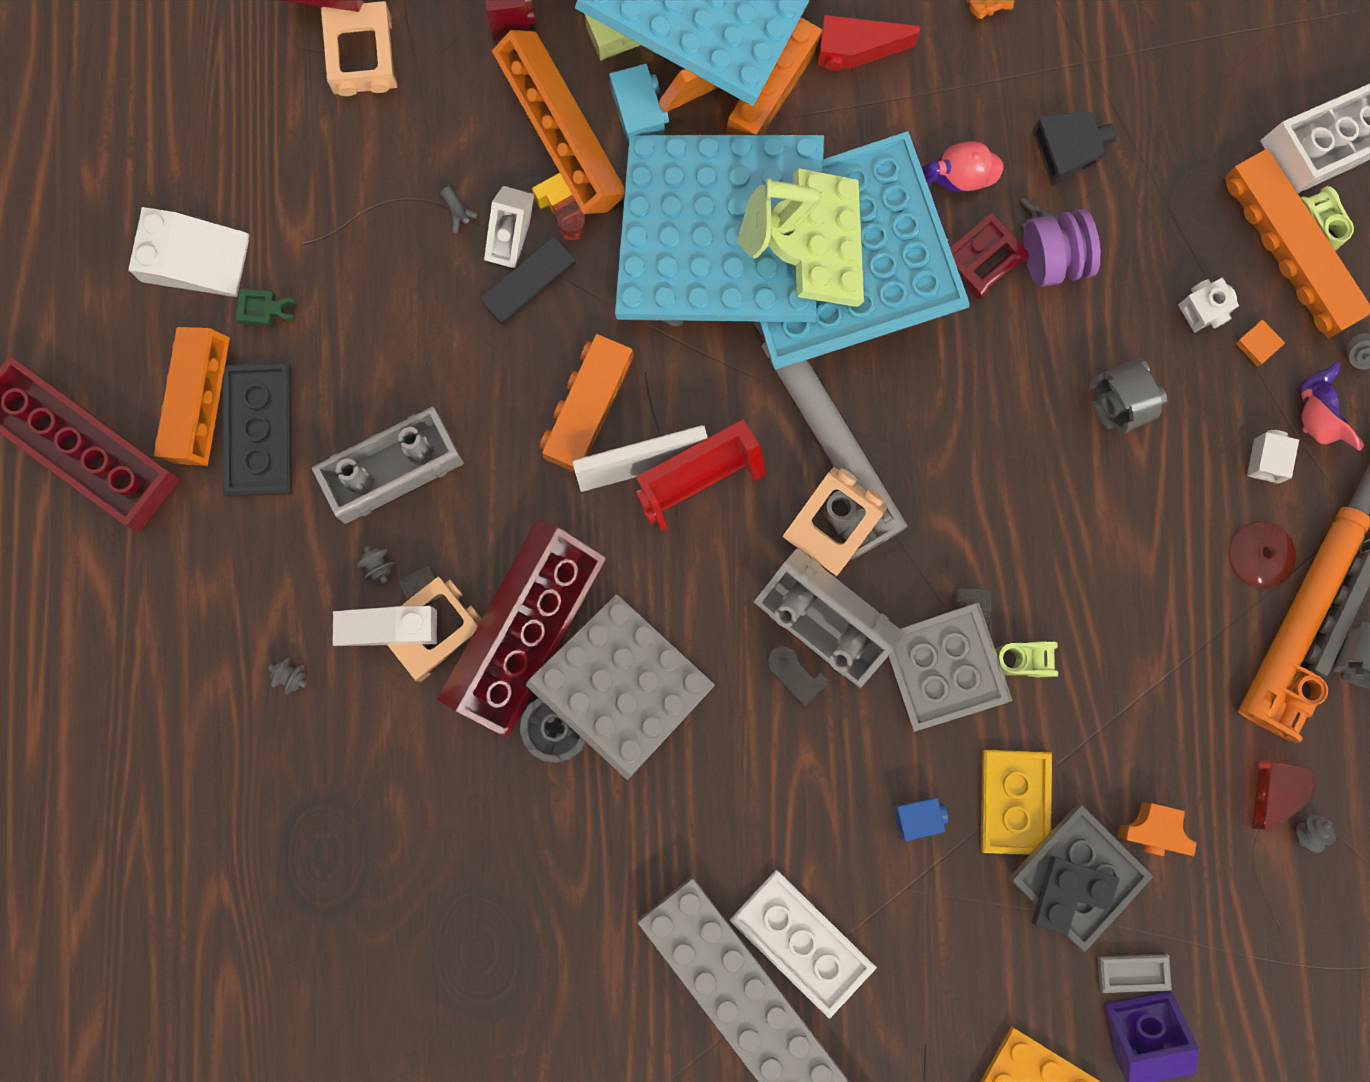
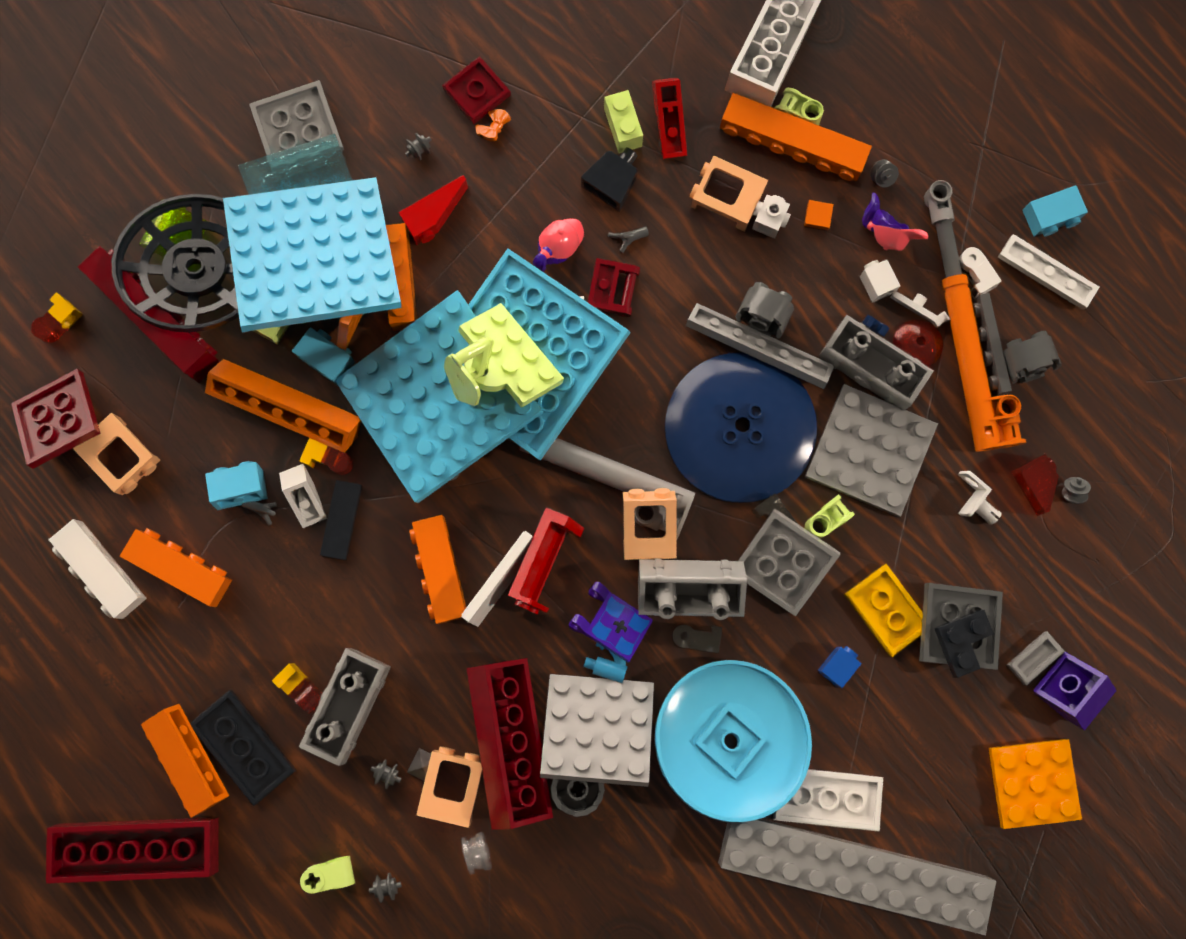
camera: 35 degrees left, 0 degrees up
(188, 253) = (109, 670): white slope -> none
(245, 620) = (333, 875): none -> yellowish green piece
(252, 146) = (97, 570): none -> white brick
(260, 307) = (183, 668): dark green plate -> none
(329, 202) = (175, 567): none -> orange brick
(356, 410) = (298, 687): none -> leg
(385, 626) = (423, 810): white slope -> none
(403, 712) = (476, 853): none -> clear wheel
(451, 166) = (236, 485): none -> medium azure brick
(678, 633) = (606, 668): none -> dark azure plant
(722, 595) = (615, 625): none -> dark purple flag
(797, 816) = (769, 732): none -> medium azure dish
(971, 527) = (732, 462): none -> dark blue dish
(1062, 247) = (656, 248): medium lavender wheel -> none
(1093, 429) = (760, 345): none -> light grey plate
(1127, 625) = (871, 450): none -> light grey plate
(1128, 94) = (623, 121): none -> yellowish green brick
(1158, 830) = (984, 561): orange brick -> none
(1180, 127) = (670, 117): none -> red slope
(1189, 273) = (747, 200): none -> light nougat window
(1199, 764) = (977, 501): none -> white bracket
(1201, 537) = (875, 363): none -> light grey piece
(1230, 500) = (875, 326): none -> dark blue plate
(1291, 515) = (917, 307): none -> white piece

